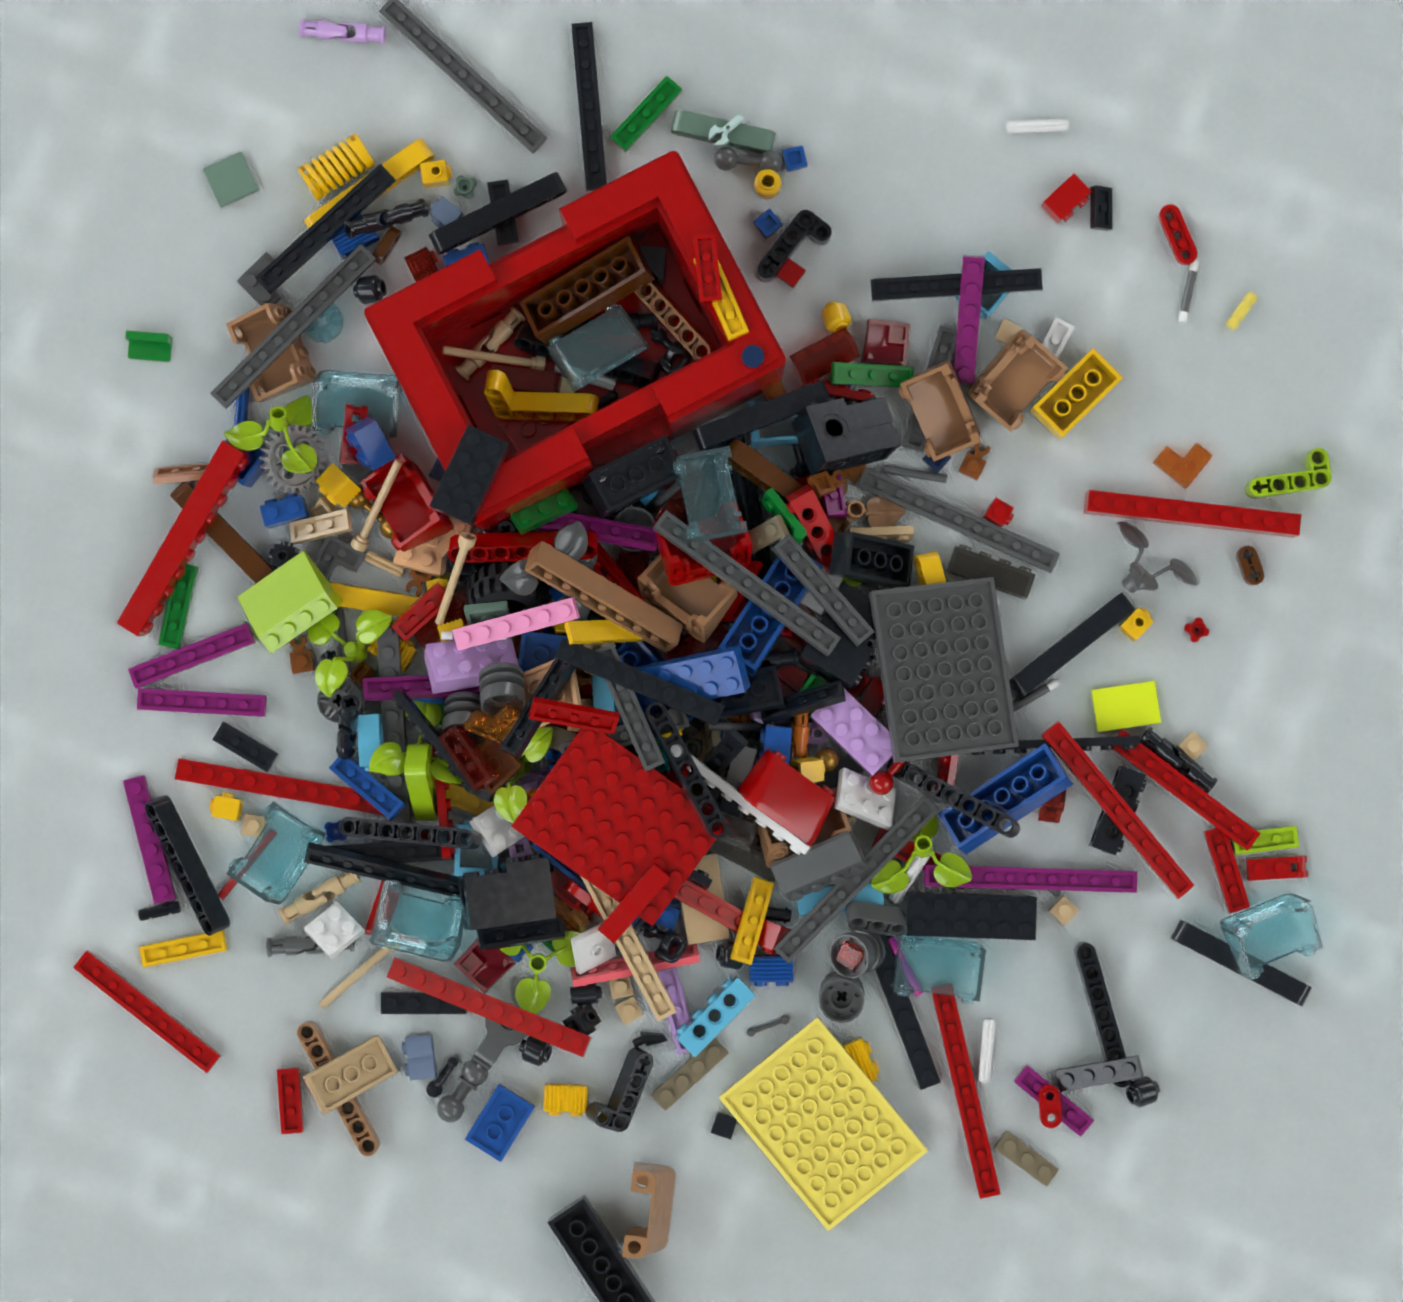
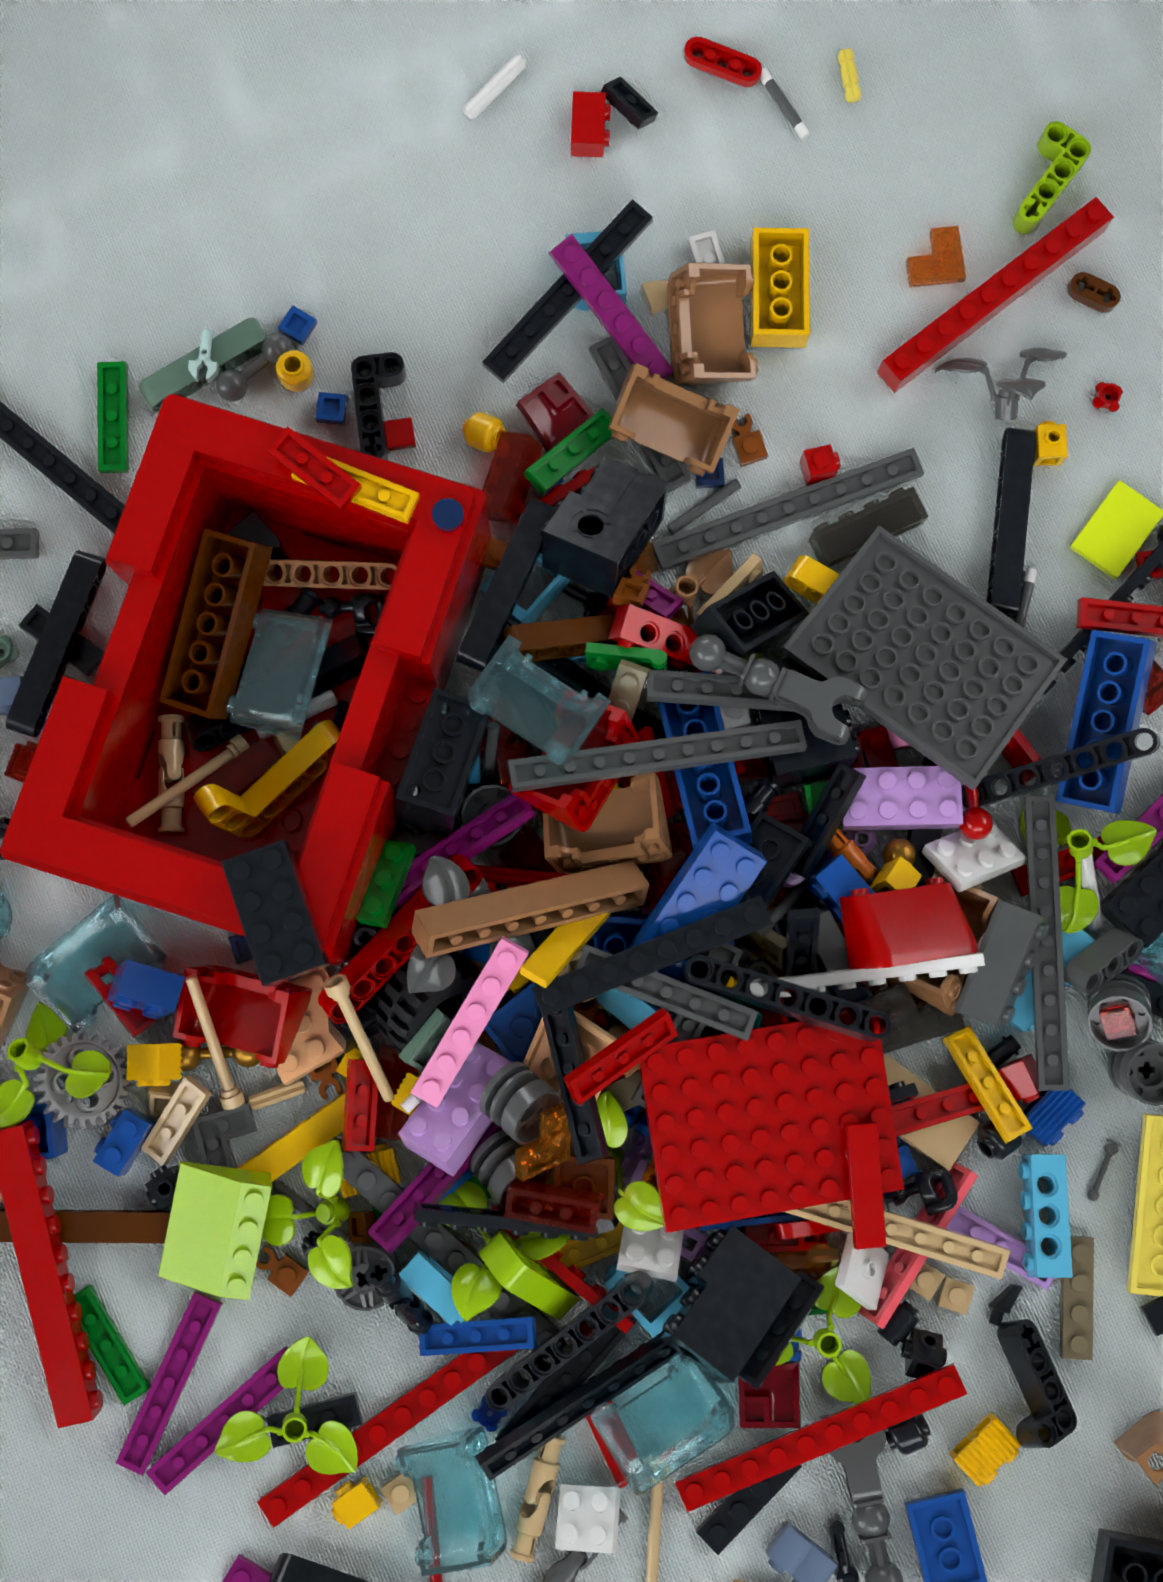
camera: 50 degrees left, 5 degrees down
(237, 768) = (331, 1448): none -> lime plant
(848, 612) = (787, 687): none -> dark grey piece

